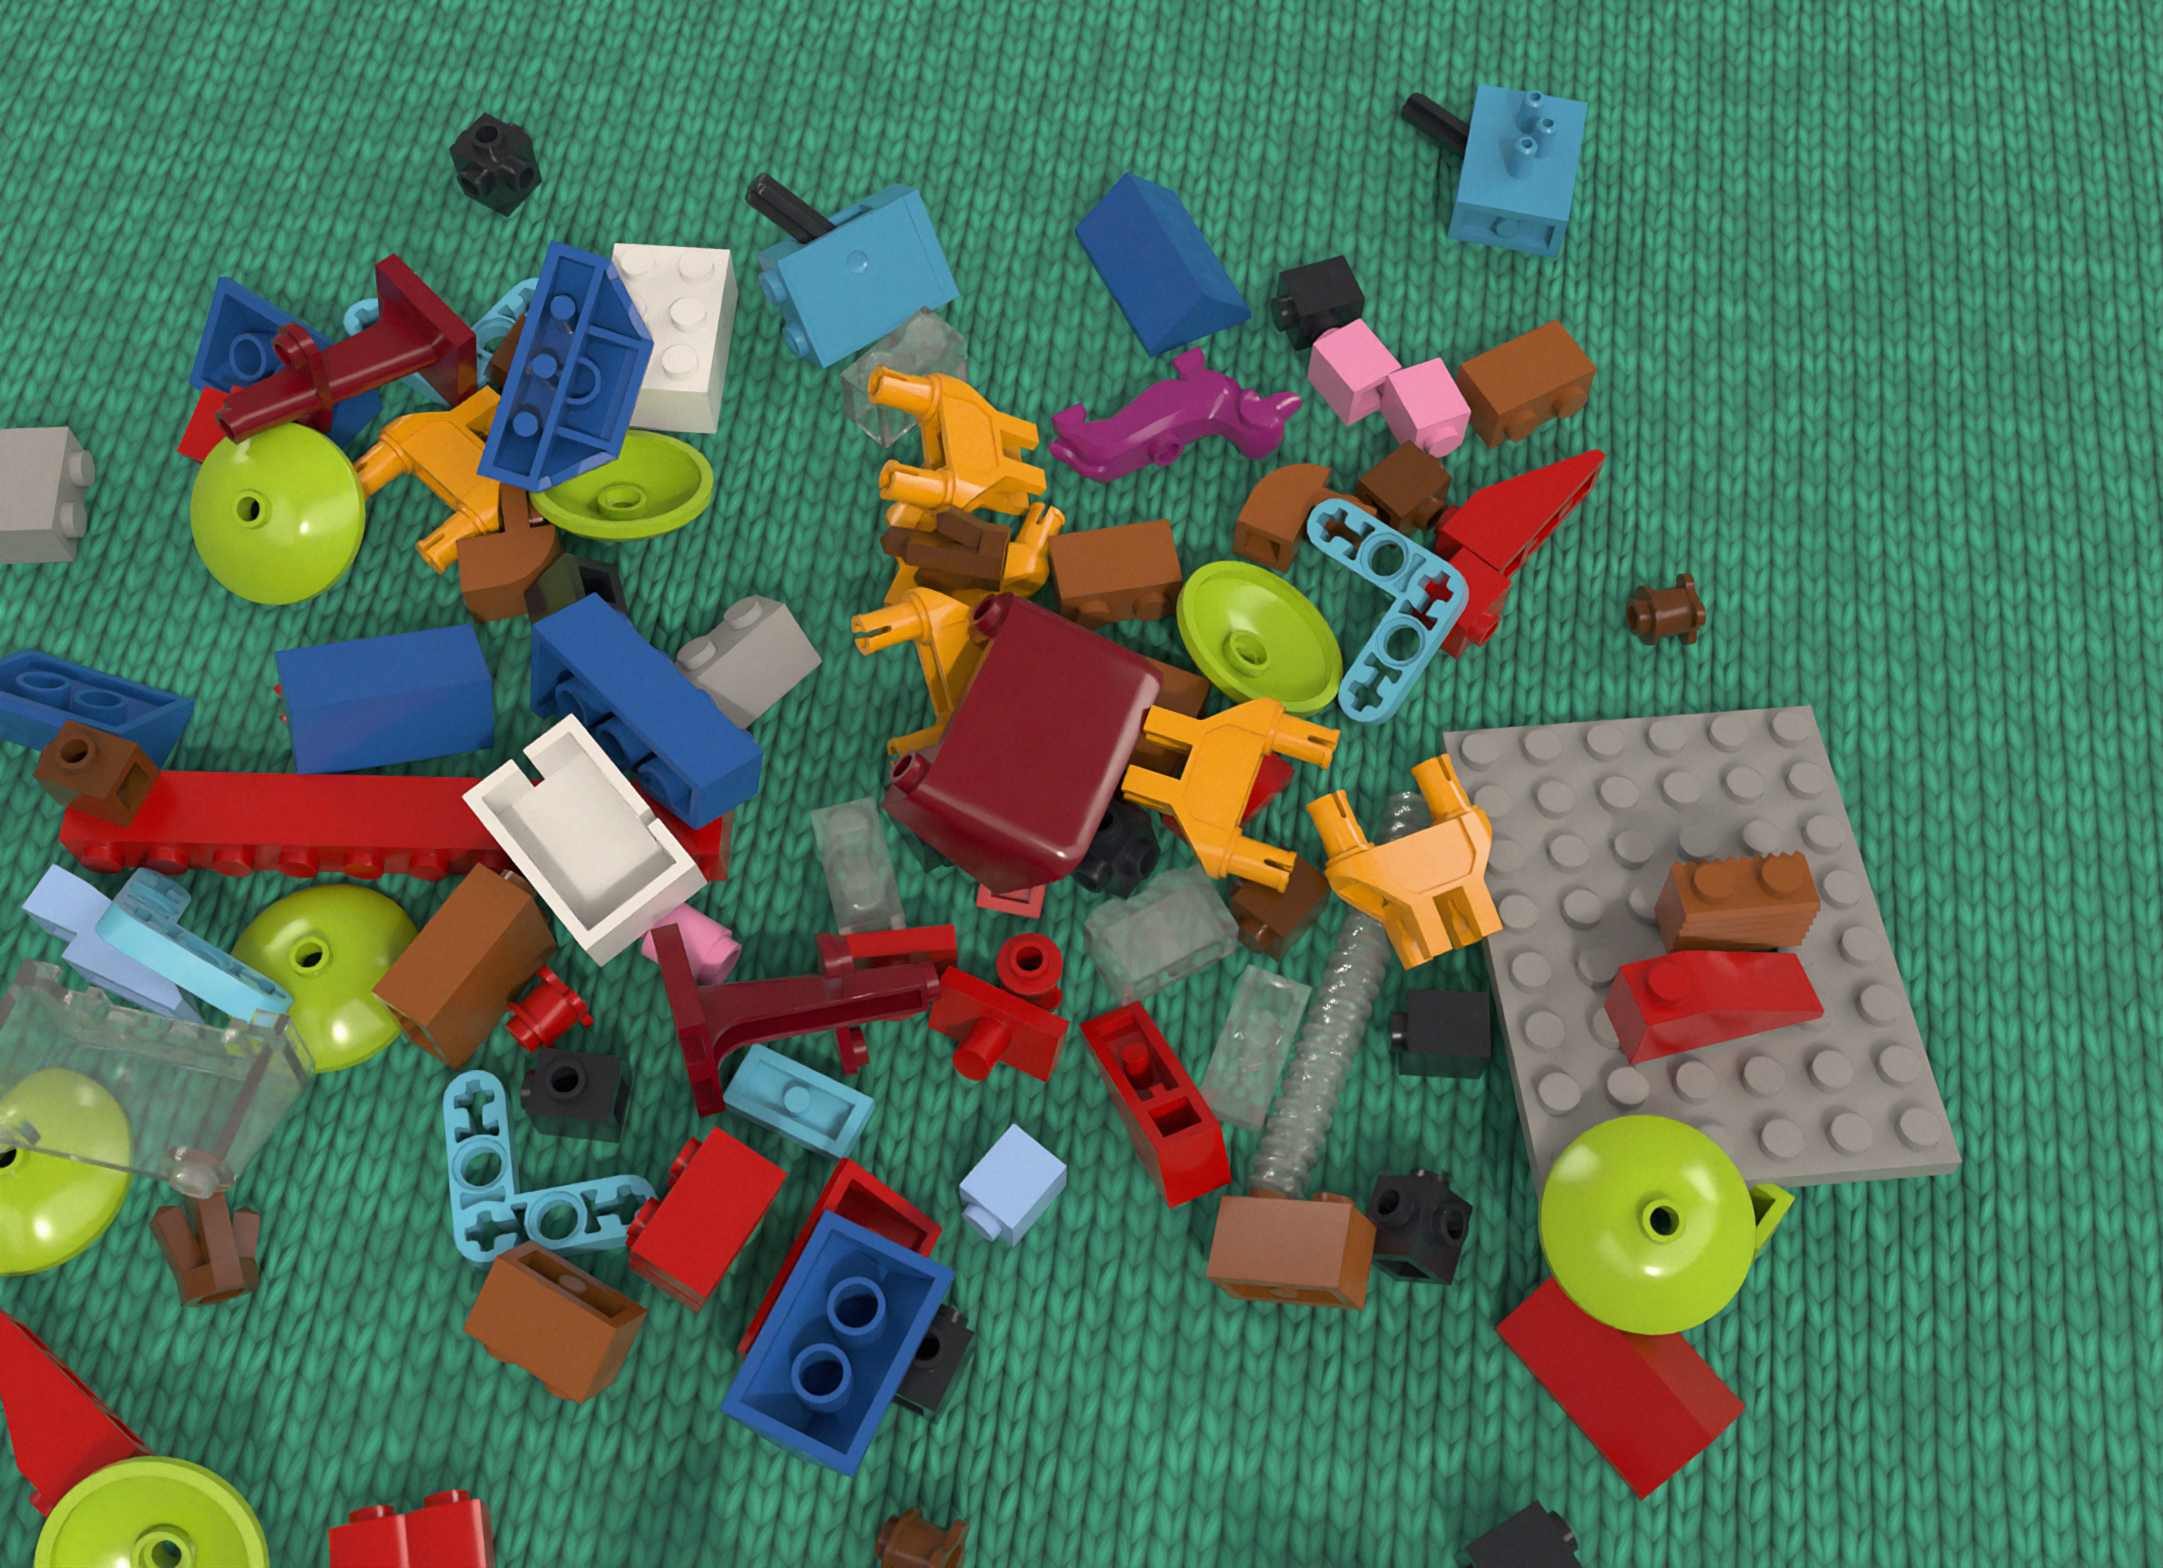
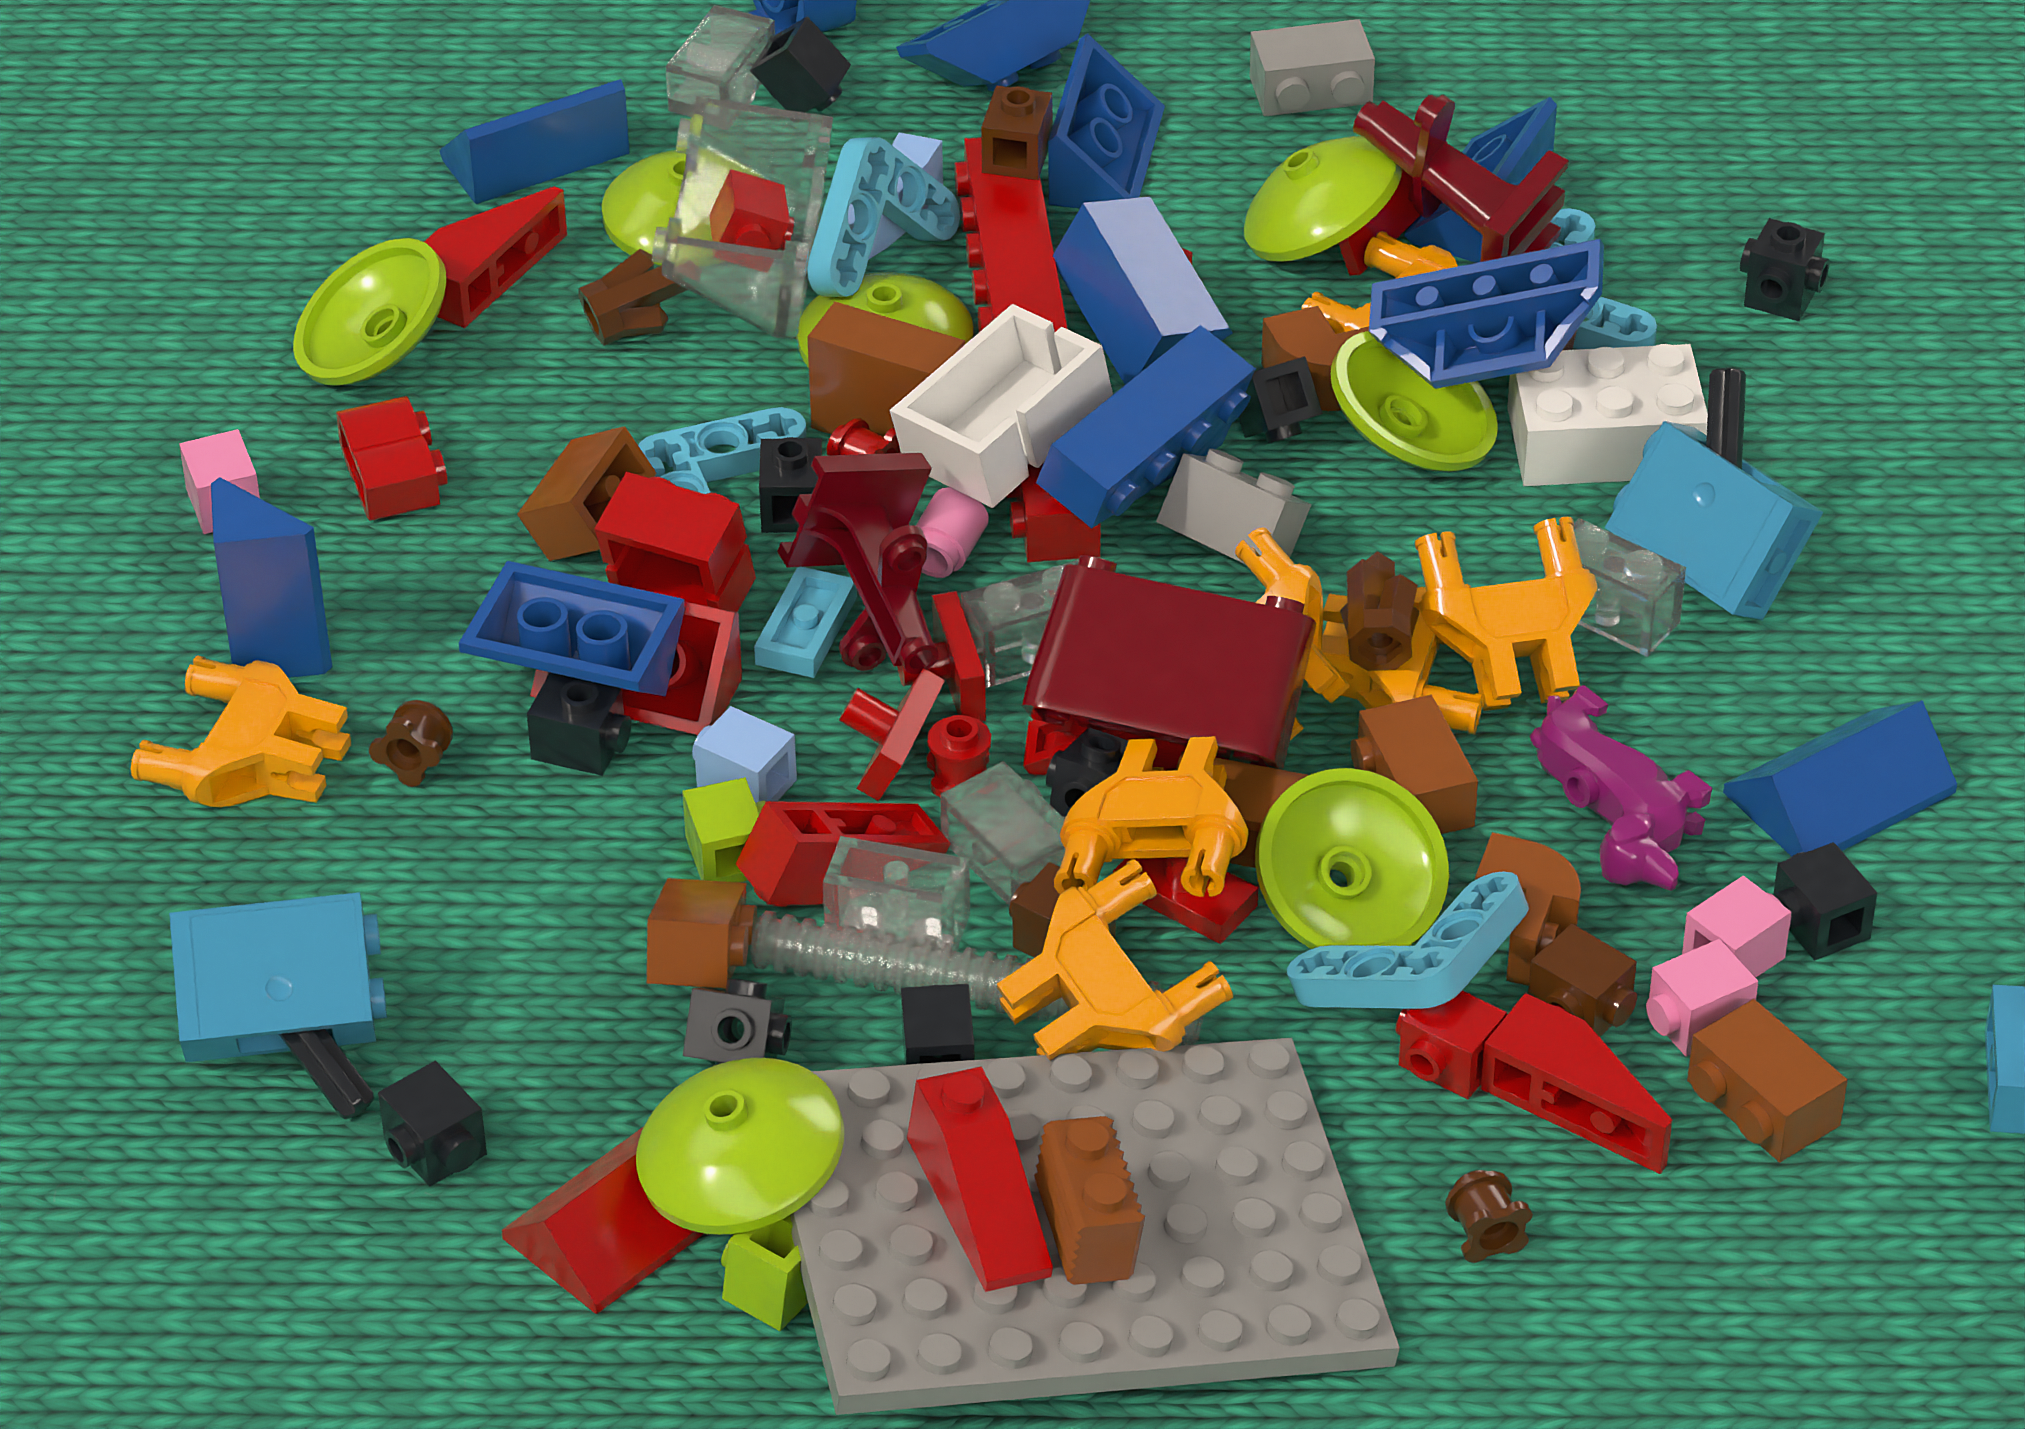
camera: 85 degrees right, 20 degrees down
(154, 1081) = (751, 213): none -> red brick
(1114, 1214) = (718, 826): none -> lime brick

